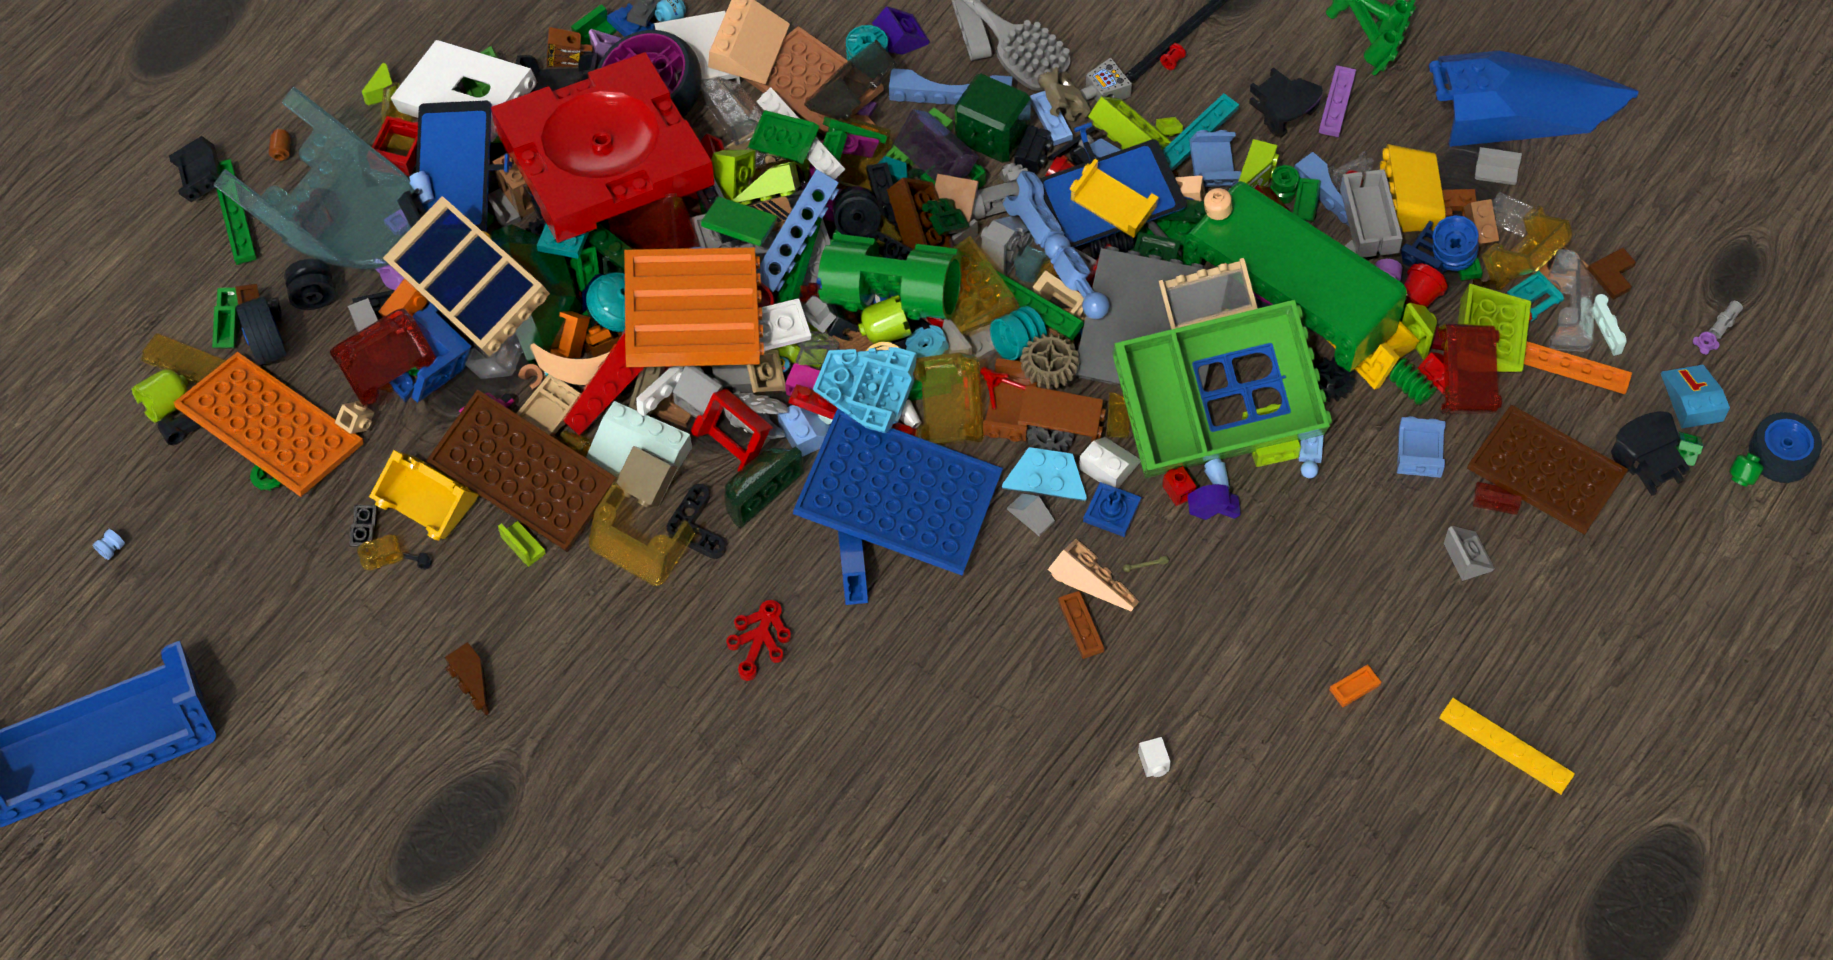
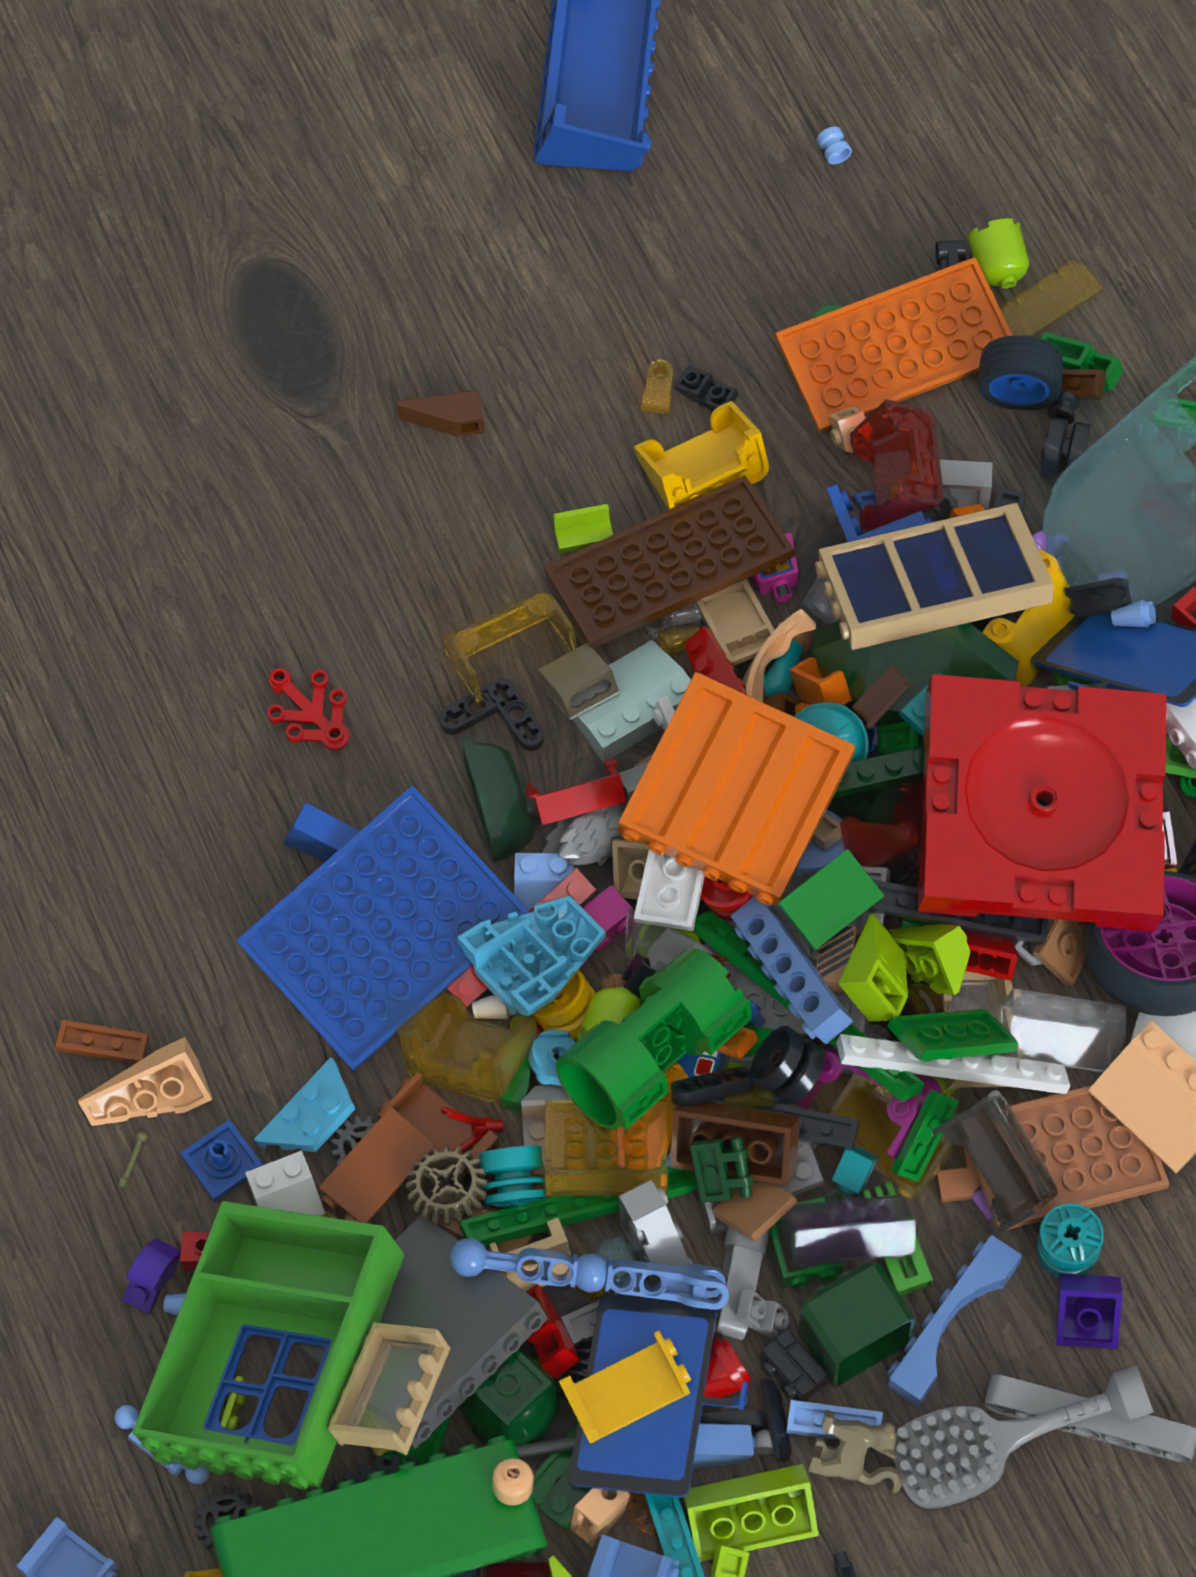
camera: 120 degrees right, 5 degrees up
(422, 559) = (625, 429): black hand -> none
(568, 277) = (882, 696): none -> reddish brown panel
(1032, 513) = (277, 1070): light grey slope -> none
(1106, 81) = (847, 1523): light grey torso -> none

